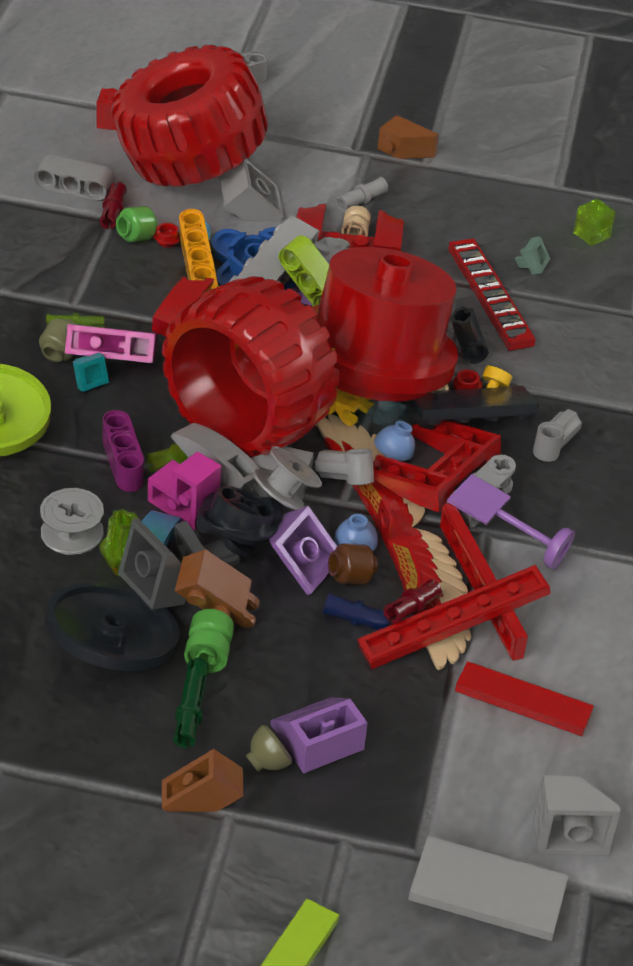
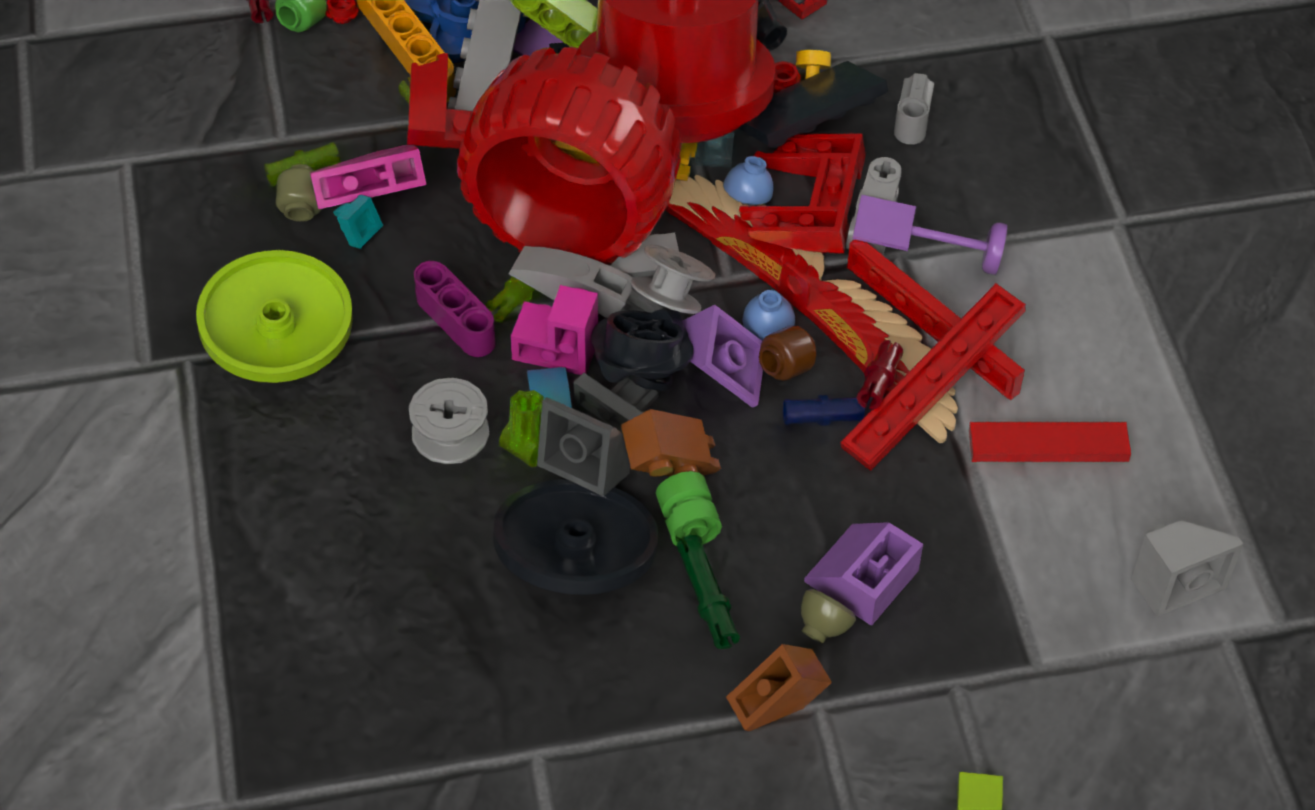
camera: 20 degrees left, 10 degrees up
(352, 465) = (726, 232): light grey piece -> none
(488, 888) = (1135, 679): light grey tile -> none

